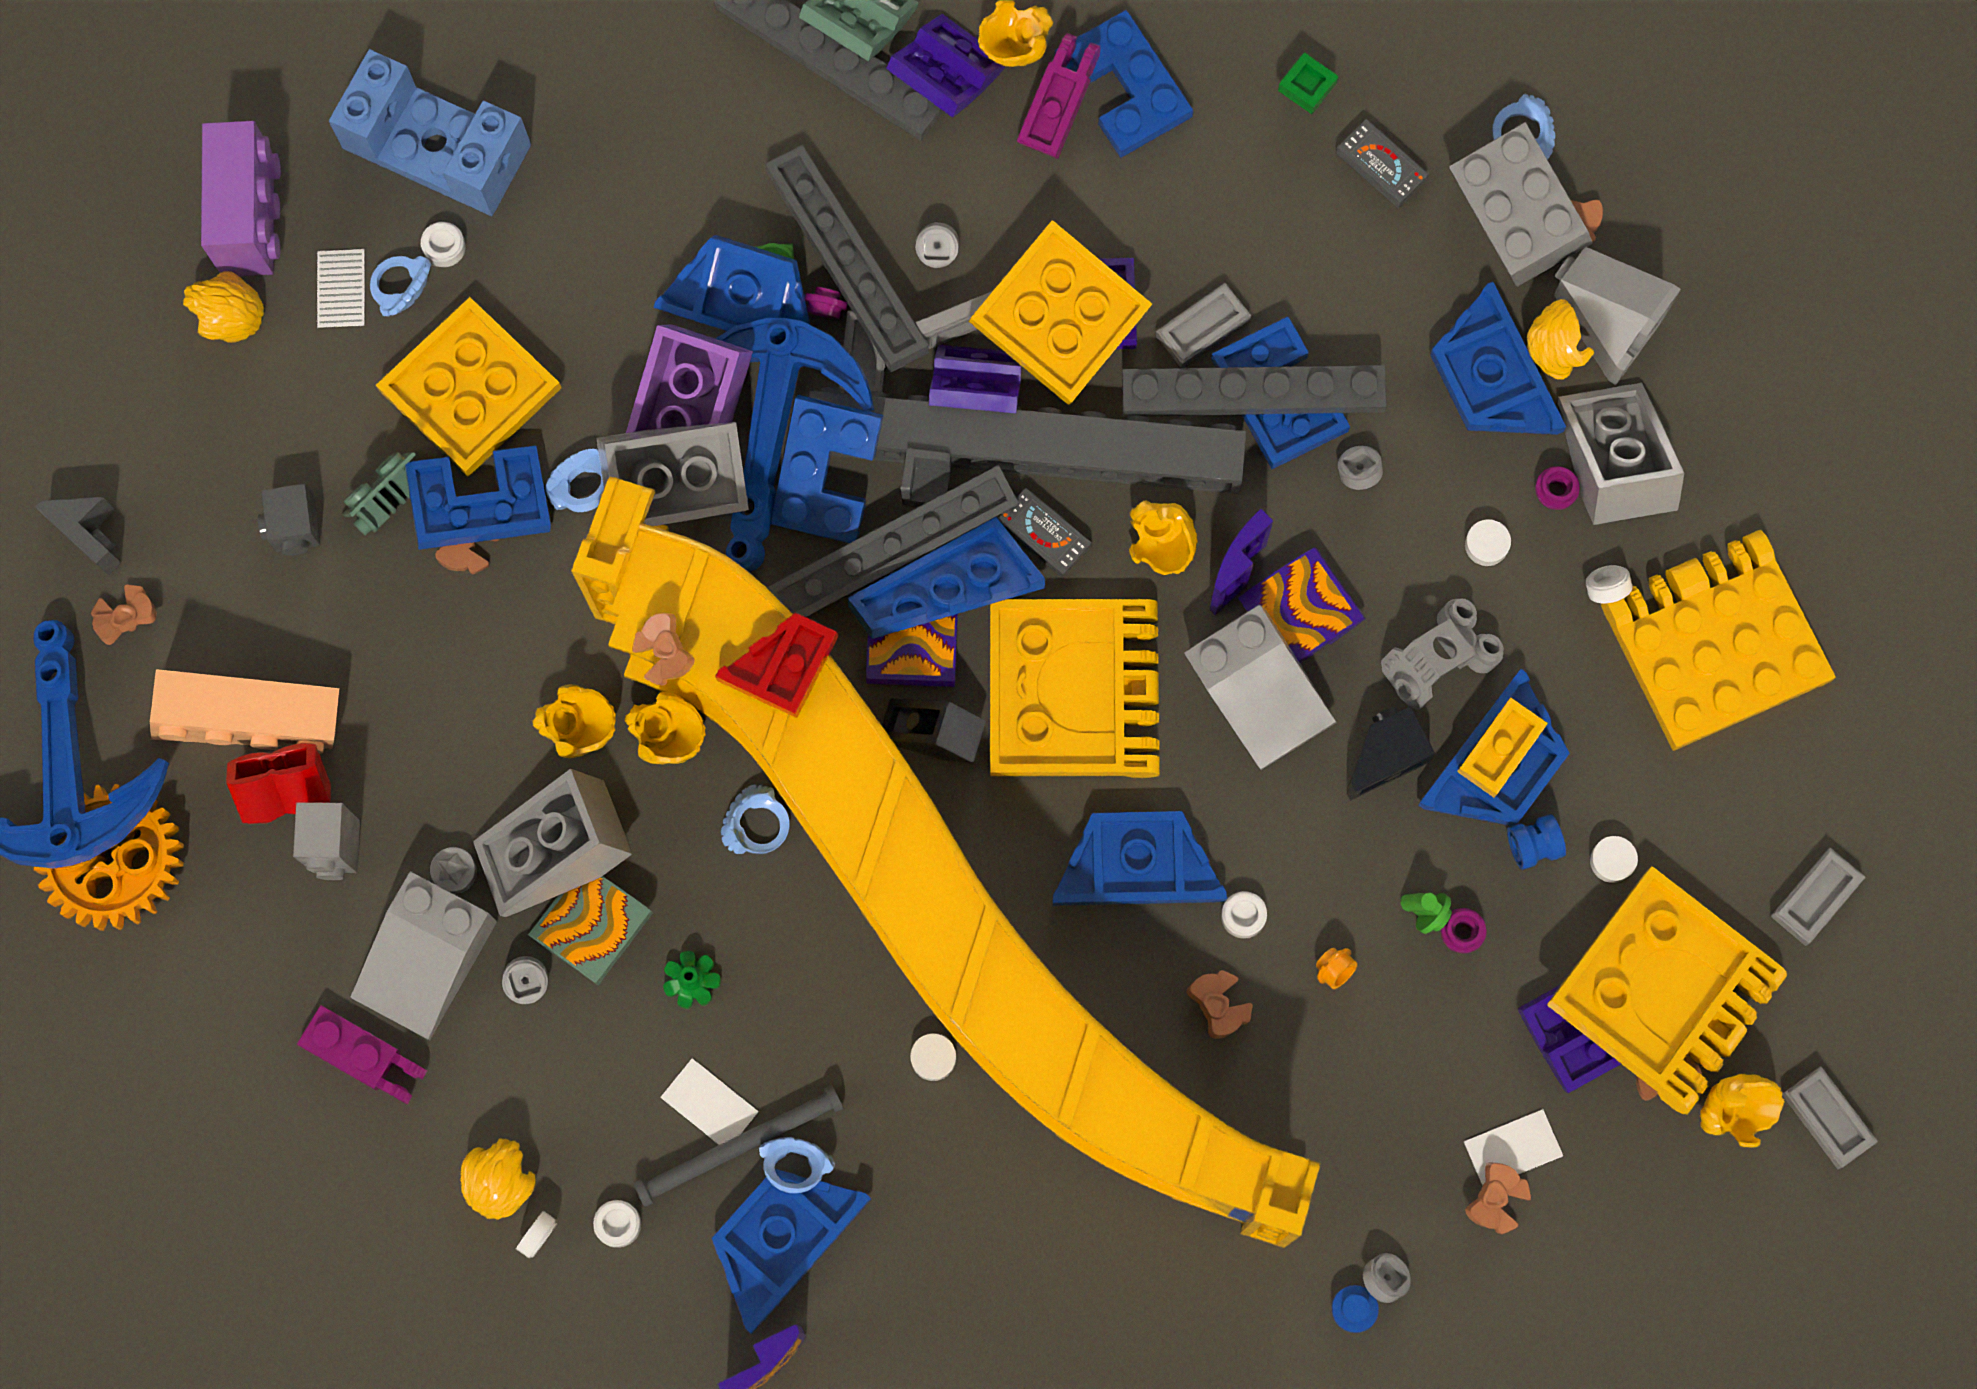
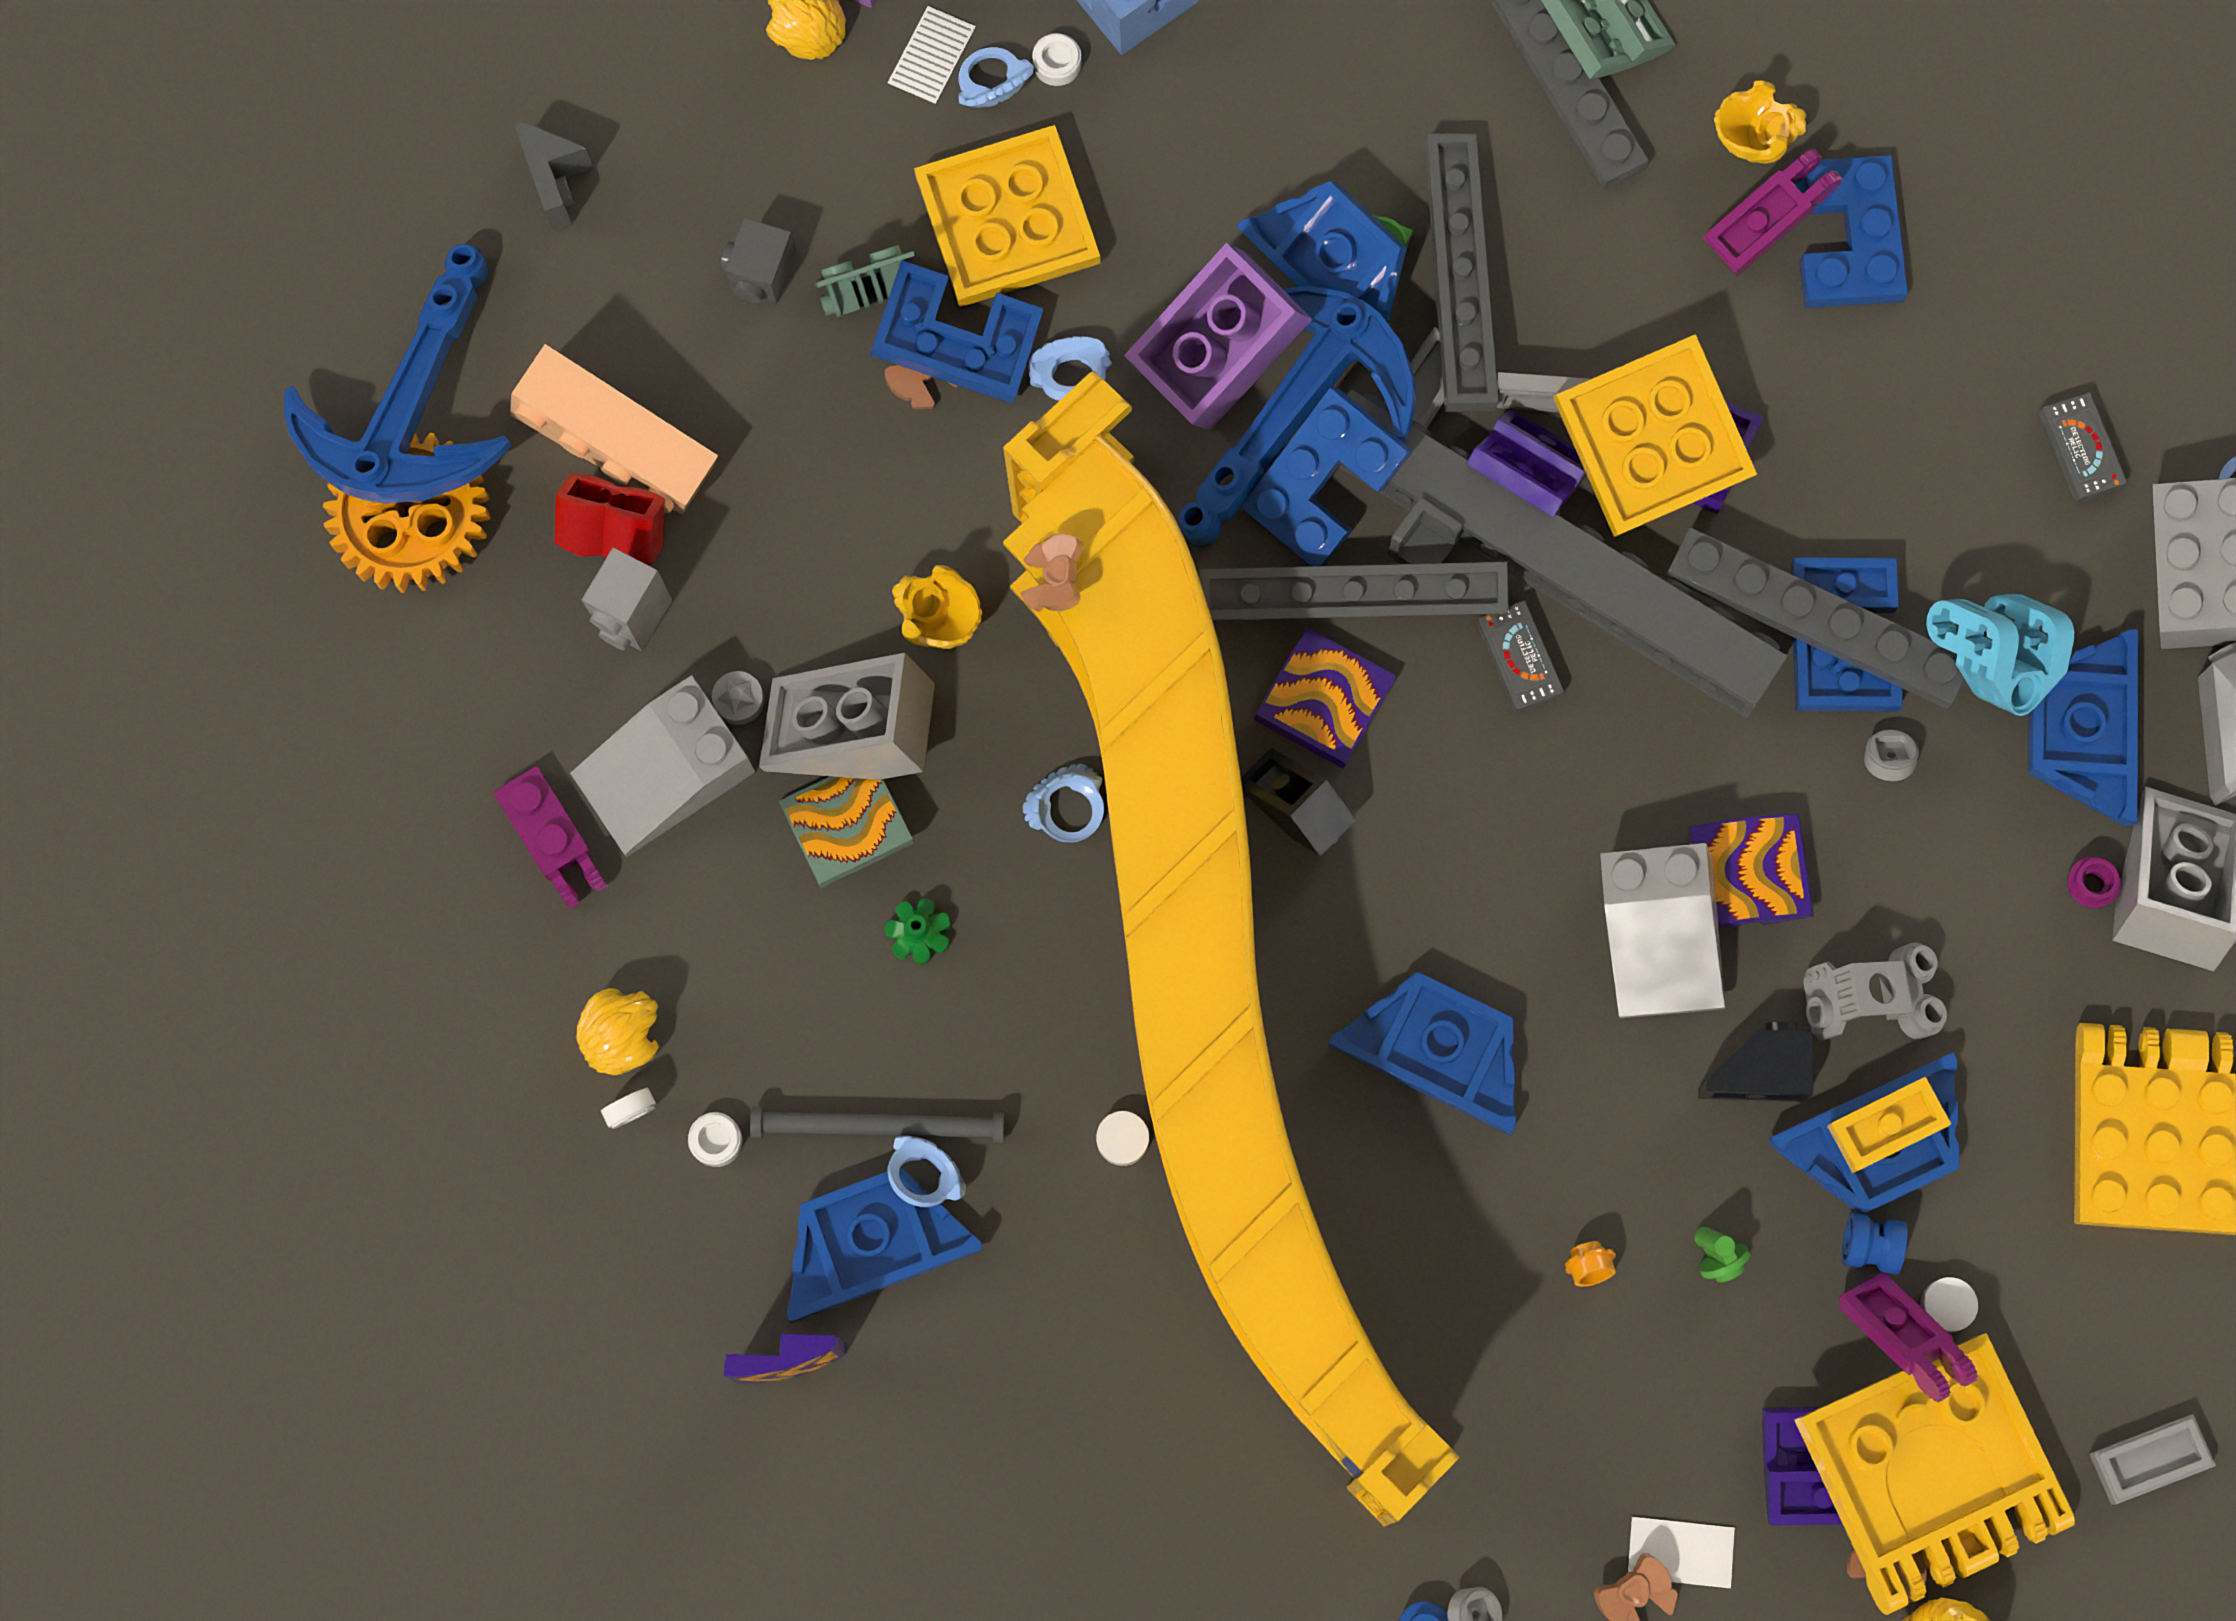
camera: 30 degrees right, 0 degrees up
(111, 624) = (530, 279): nougat piece -> none
(525, 980) = (751, 845): light grey tile -> none
(666, 729) = (1024, 663): yellow hair -> none
(689, 467) = (1179, 404): light grey slope -> none
(709, 1103) = (871, 1066): white sticker -> none
(782, 665) = (1169, 651): red wing -> none
(825, 303) = (1415, 308): magenta plate -> none
(937, 245) = (1563, 304): light grey tile -> none
(945, 65) = (1668, 123): dark purple slope -> none
(953, 579) = (1401, 657): blue wing -> none
(1065, 687) = (1459, 825): yellow hinge -> none
(1165, 536) = (1644, 724): yellow hair -> none
(1203, 325) = (1801, 524): light grey tile -> none
(1221, 1018) = (1442, 1220): nougat piece -> none
(1237, 563) = (1702, 790): dark purple slope -> none
(1244, 914) = (1522, 1159): white tile -> none
(1308, 83) = (2045, 324): green tile -> none
(1421, 347) = (2019, 661): none -> medium azure piece
(1473, 921) = (1763, 1297): magenta plate -> none
(1487, 542) = (1987, 902): white tile -> none
(1554, 340) = (2172, 723): yellow hair -> none
(1596, 897) = (1907, 1335): none -> magenta hinge
(1608, 584) = (2096, 1011): white tile -> none

